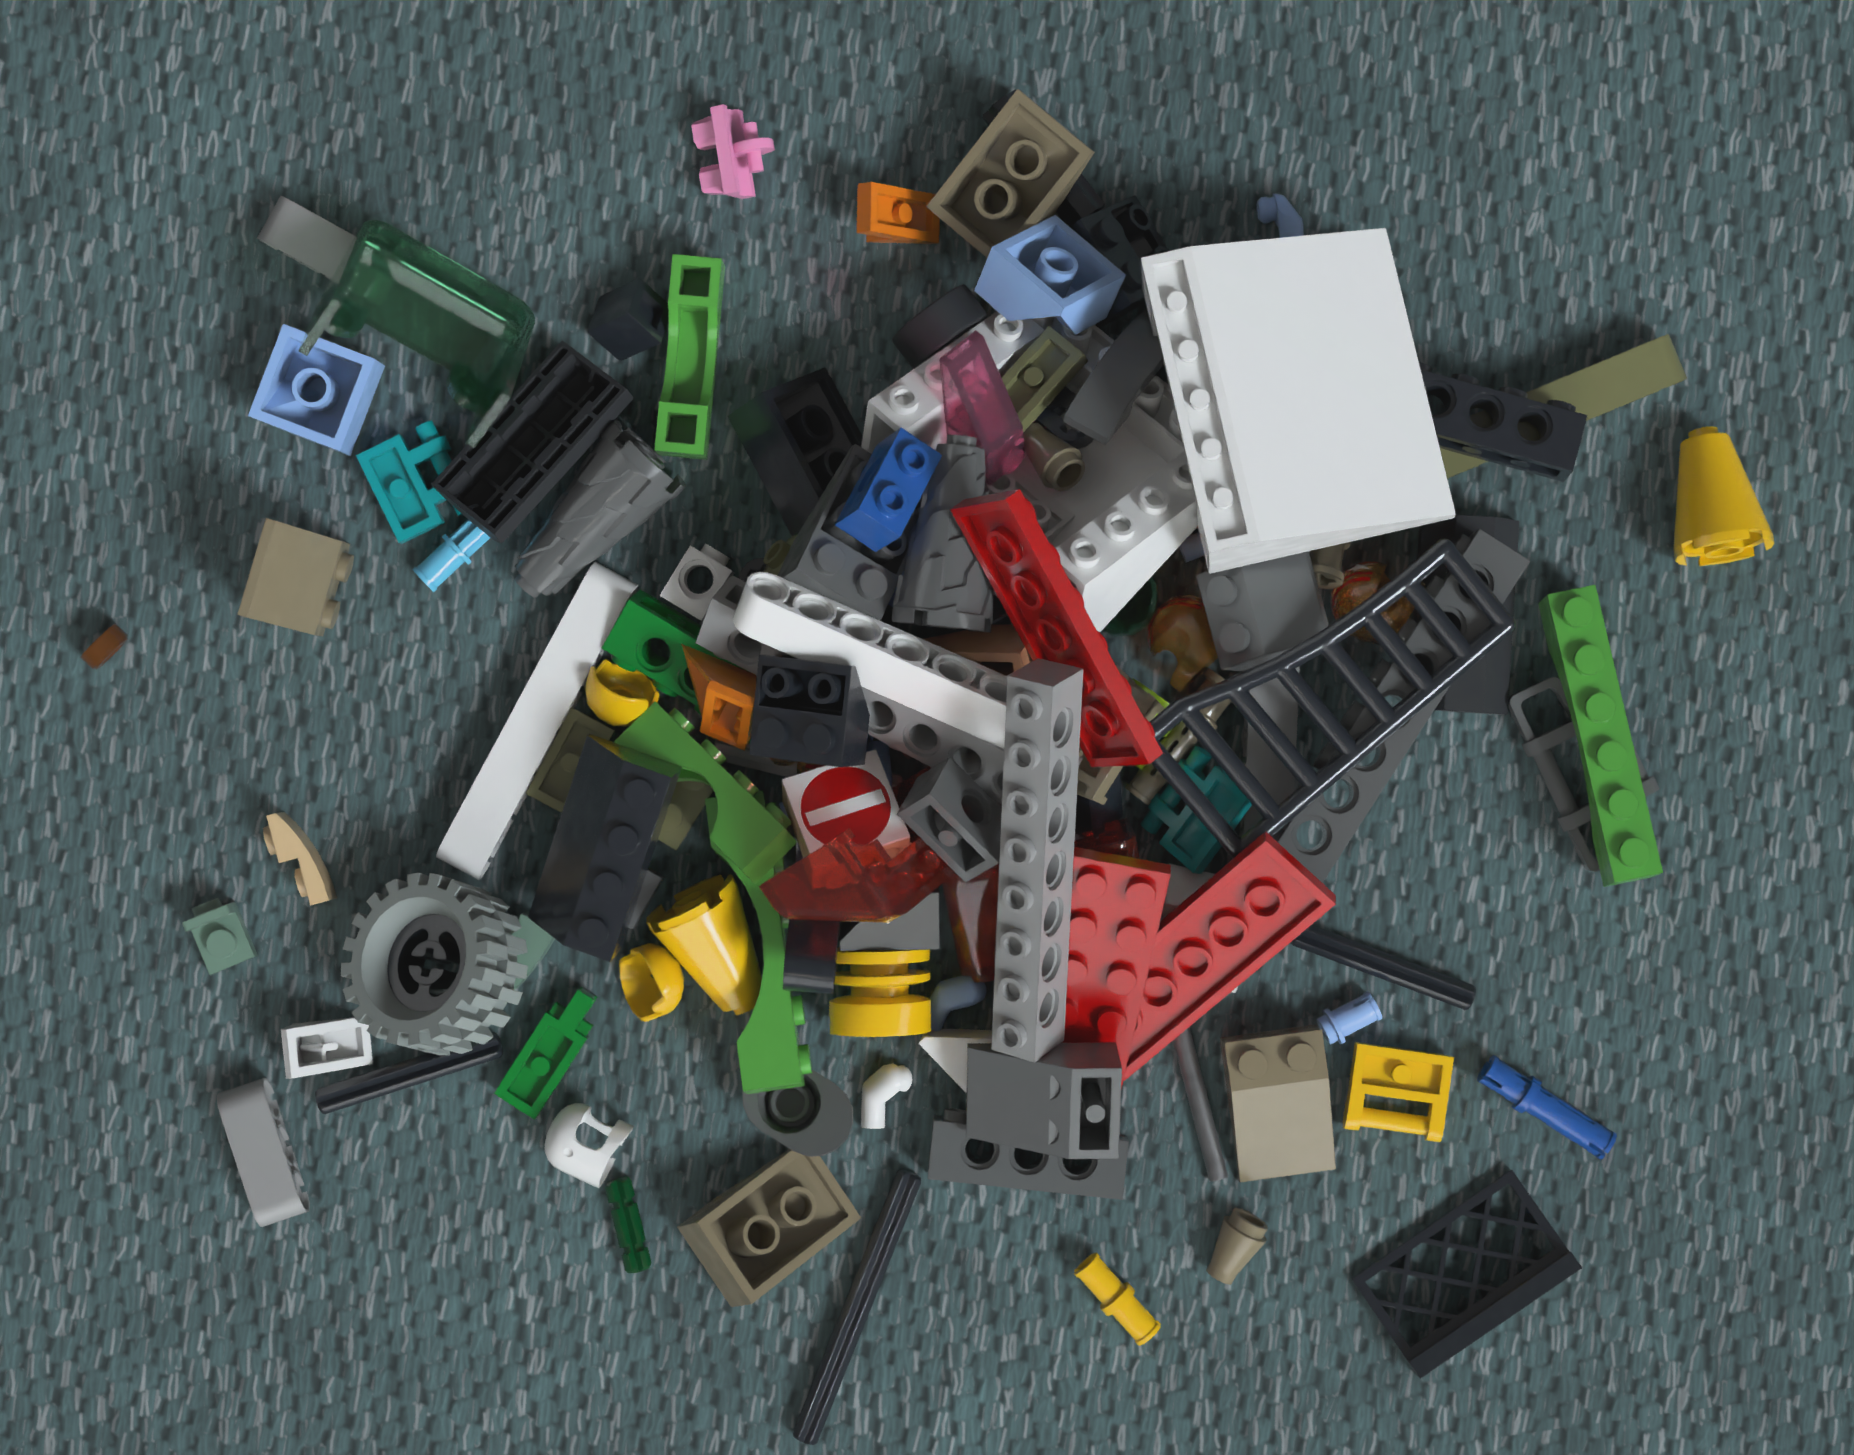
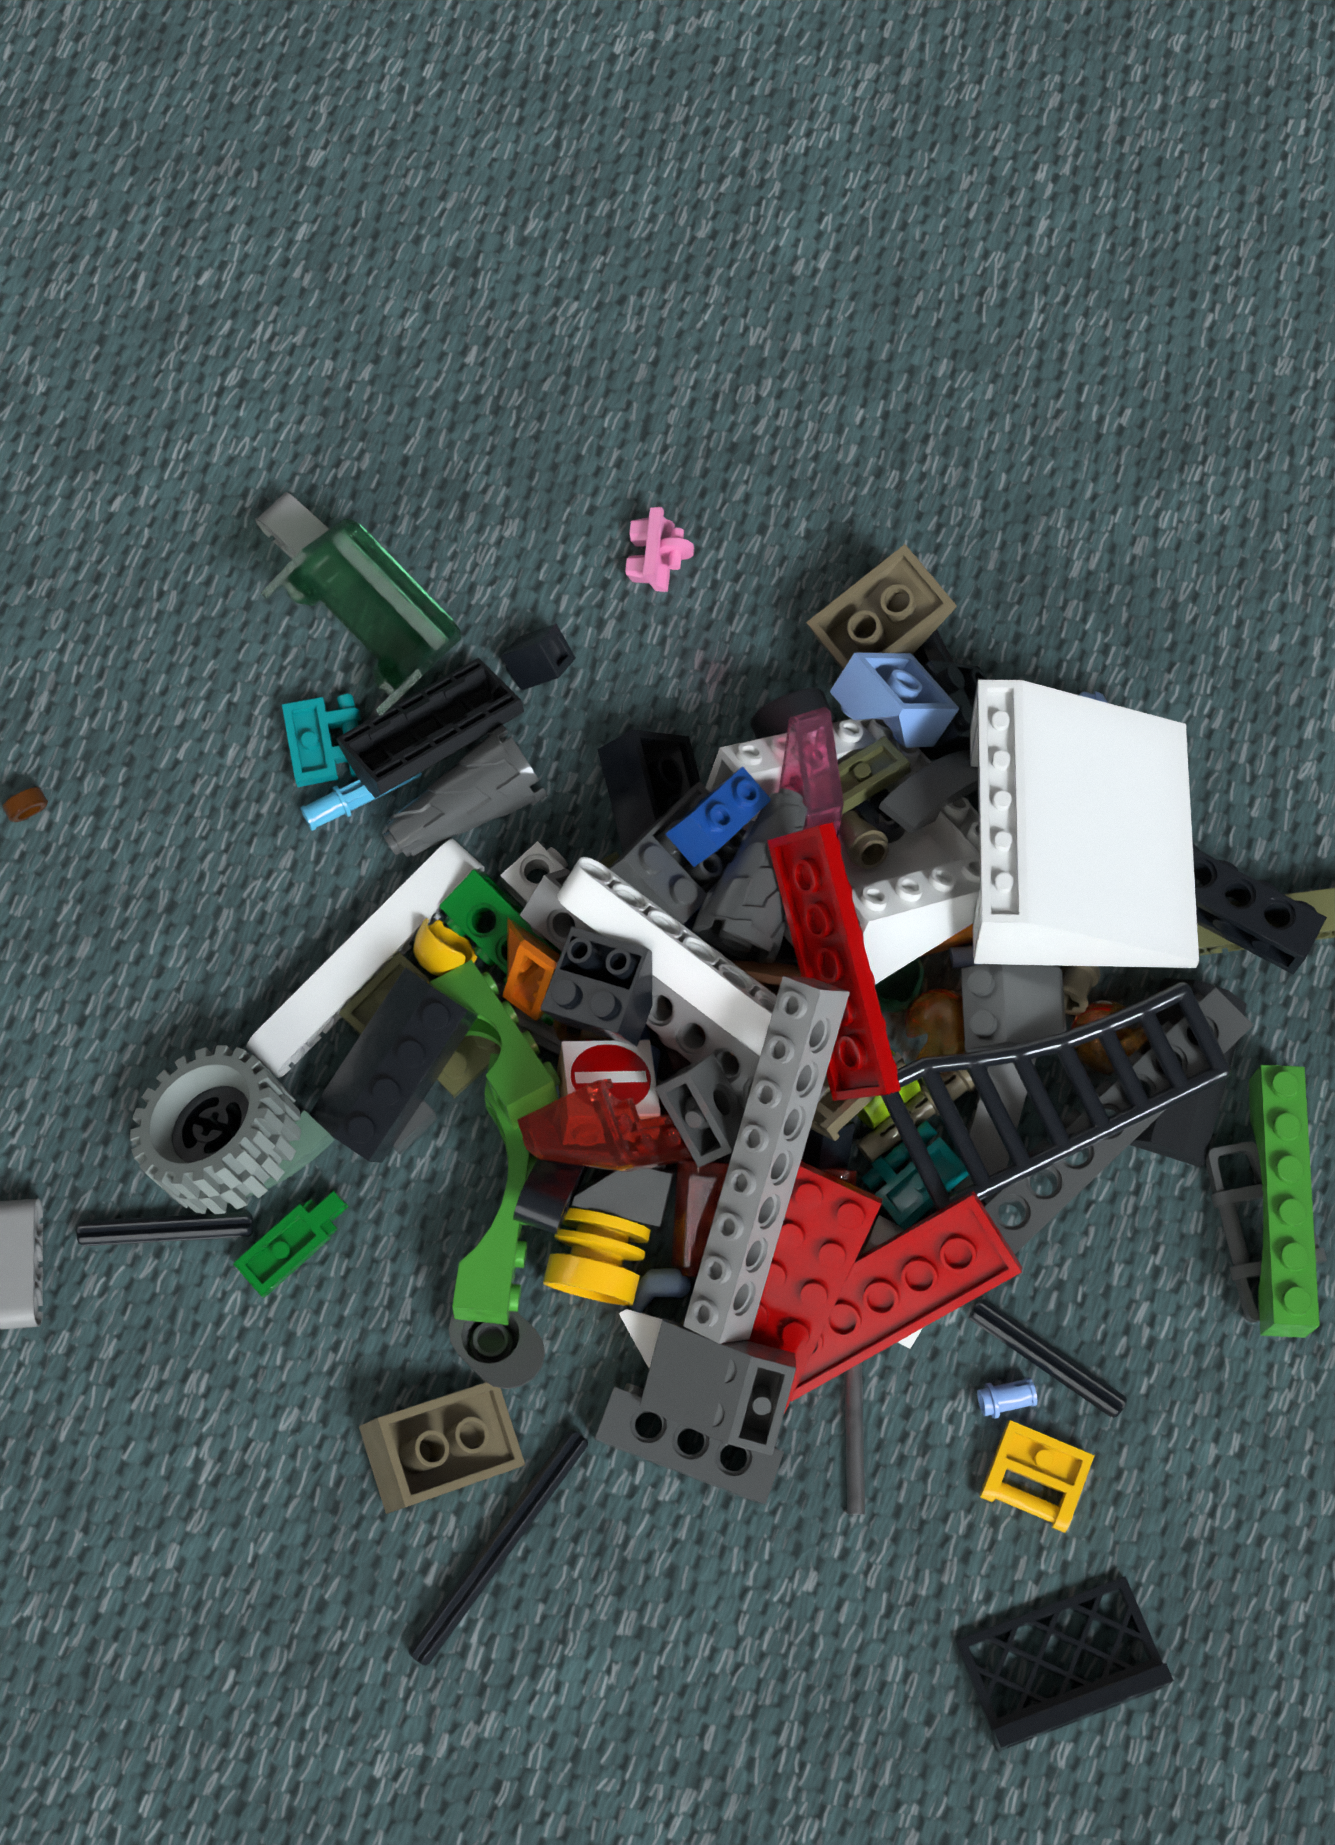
camera: 10 degrees right, 15 degrees down
(220, 935) = (41, 1066): sand green bracket -> none
(291, 843) = (127, 1007): tan slope -> none
(296, 579) = (199, 781): dark tan slope -> none
(319, 393) = (267, 644): light blue slope -> none
(325, 1046) = (100, 1184): white slope -> none
(575, 1158) = (290, 1338): white helmet -> none
(628, 1225) = (315, 1415): dark green axle -> none
(648, 995) = (388, 1212): yellow hair -> none
(691, 357) = (589, 675): bright green arch -> none
(712, 942) = (462, 1180): yellow cone -> none
(879, 1089) = (570, 1352): white arm -> none
(895, 215) = (778, 628): orange slope -> none
(1117, 1299) = (738, 1601): yellow pin -> none
(1236, 1244) = (858, 1579): dark tan cone -> none
(1279, 1102) = (927, 1457): slope -> none
(1537, 1101) = (1155, 1511): blue pin -> none

